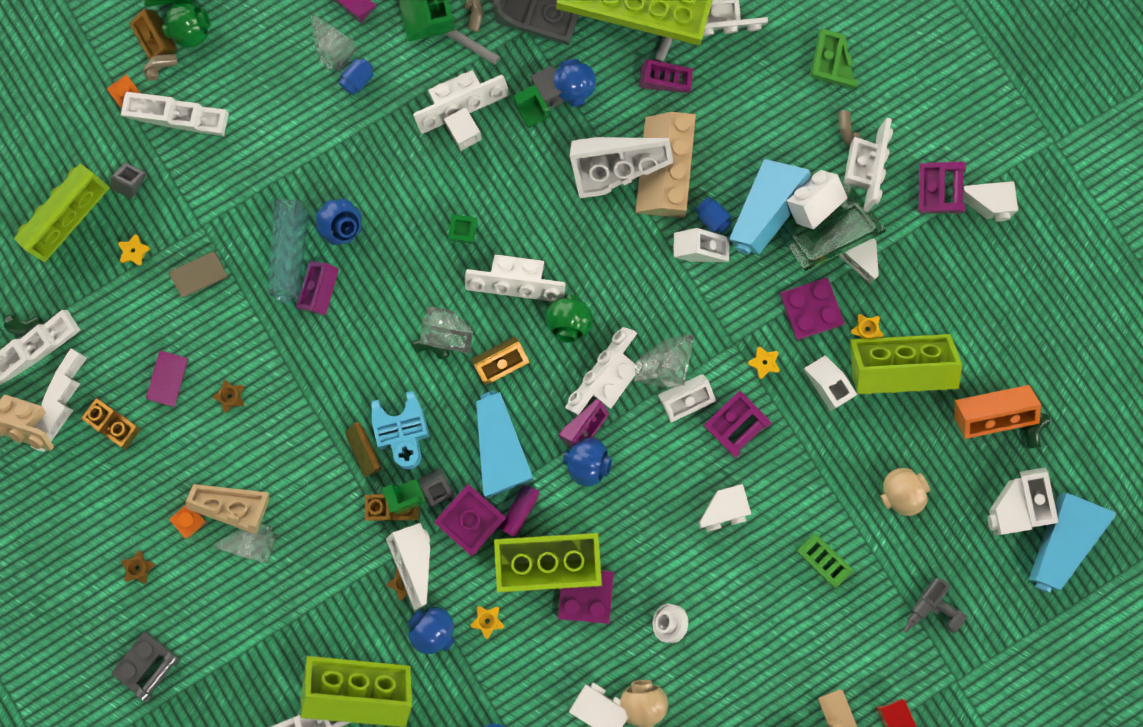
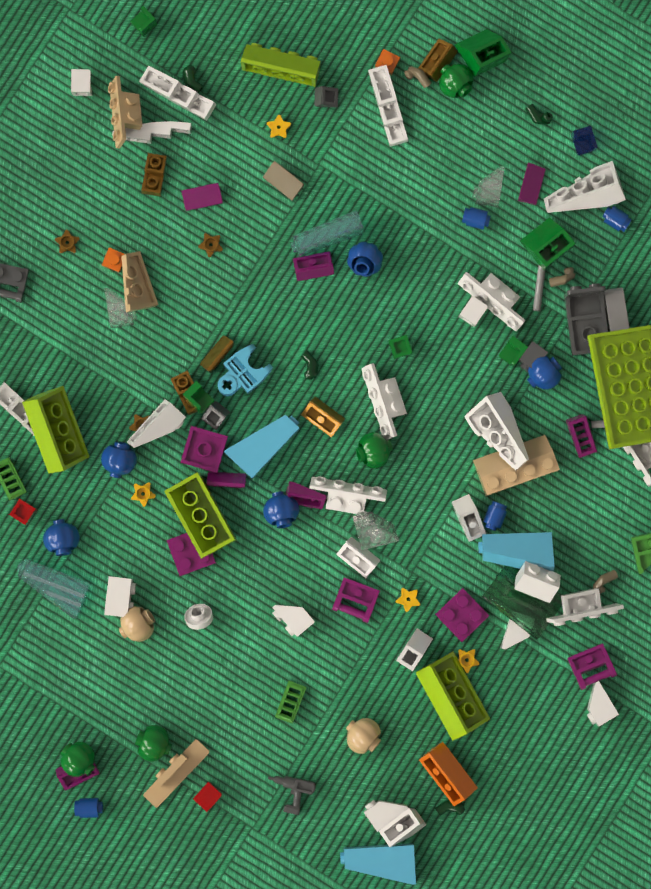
camera: 65 degrees right, 5 degrees up
(445, 330) = (324, 370): clear slope -> none

